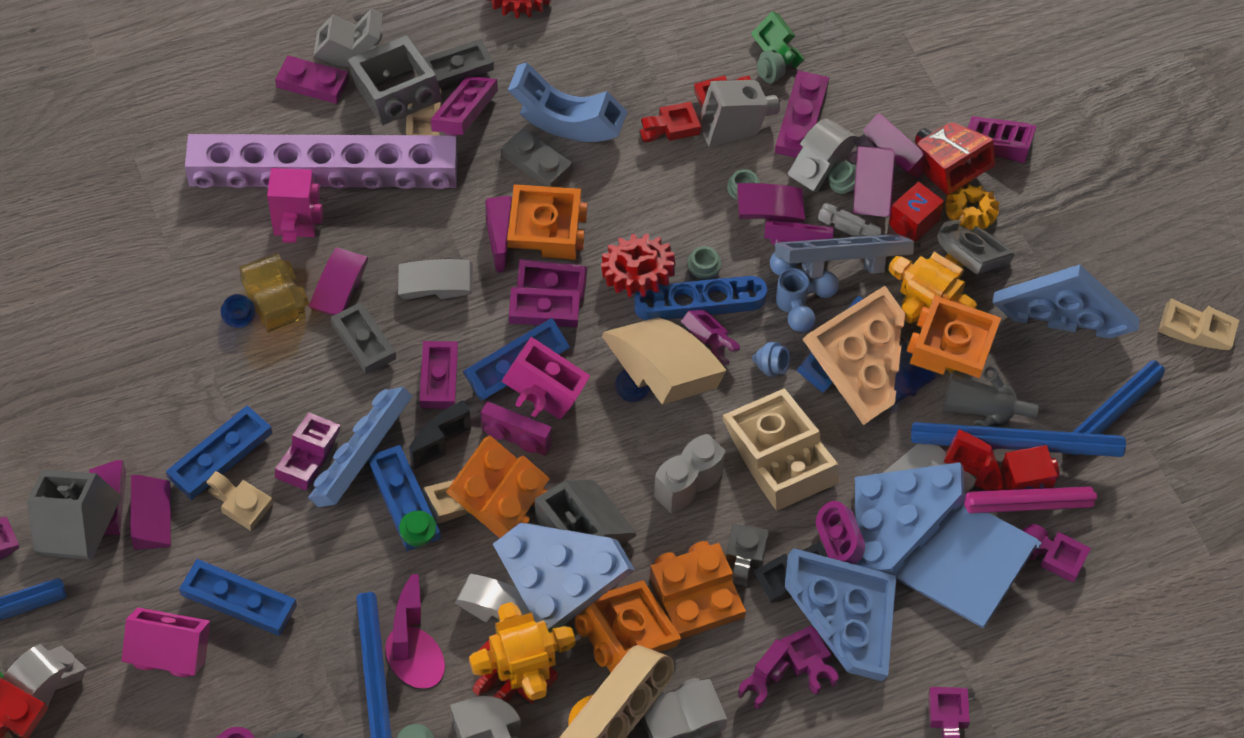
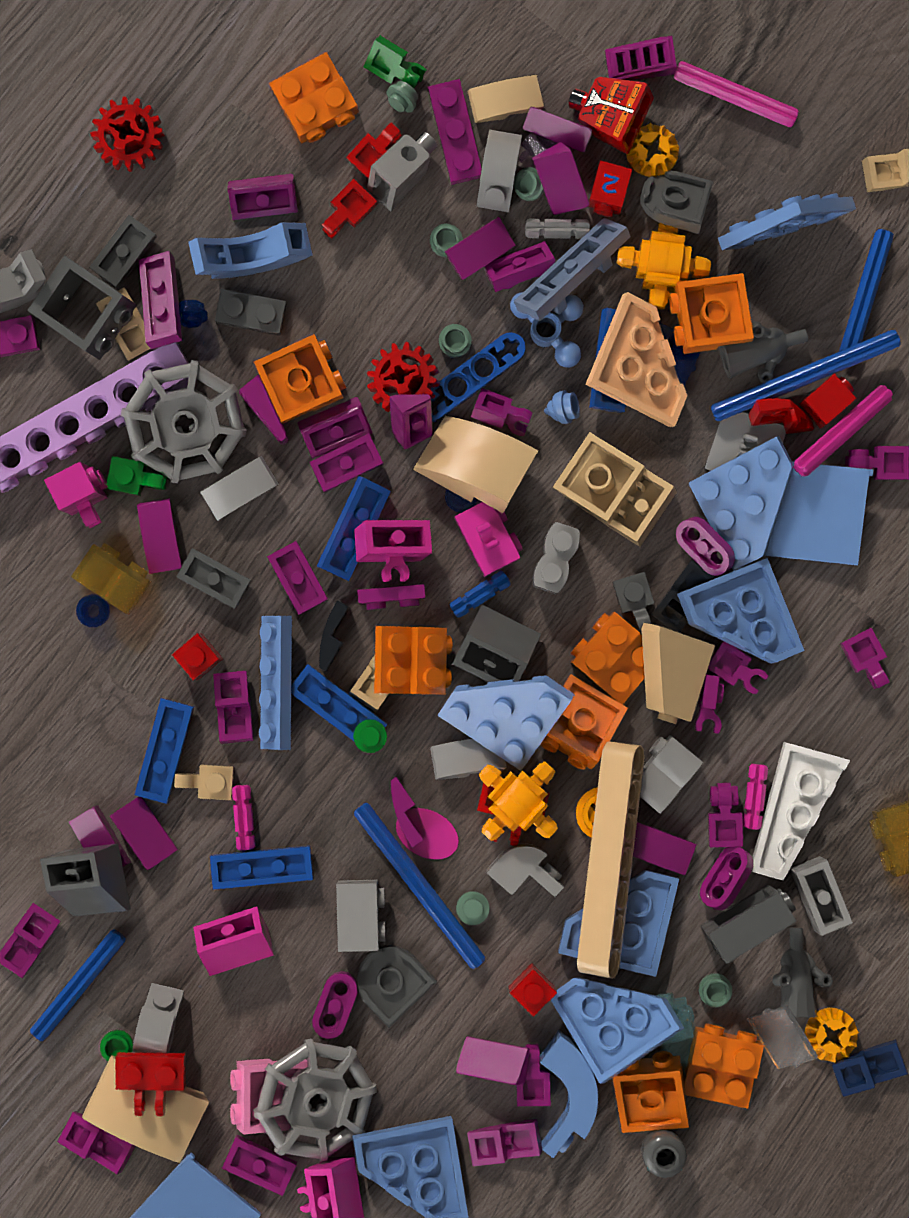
camera: 25 degrees left, 30 degrees up
(252, 546) = (243, 817): none -> dark pink axle
(300, 687) = (359, 915): none -> light grey brick
(304, 388) = (197, 656): none -> red brick
(348, 227) = (130, 477): none -> green plate
(429, 218) = (192, 404): none -> light grey plate
(484, 132) = (192, 313): none -> clear blue plate
(594, 79) = (262, 196): none -> magenta slope
(601, 472) = (480, 594): none -> blue axle
(626, 292) = (411, 418): none -> magenta slope
(636, 427) = (488, 538): none -> dark pink brick
(694, 36) = (314, 98): none -> orange plate
(746, 621) = (673, 671): none -> tan slope
(855, 106) = (505, 98): none -> tan slope
(1073, 200) = (736, 94): none -> dark pink axle

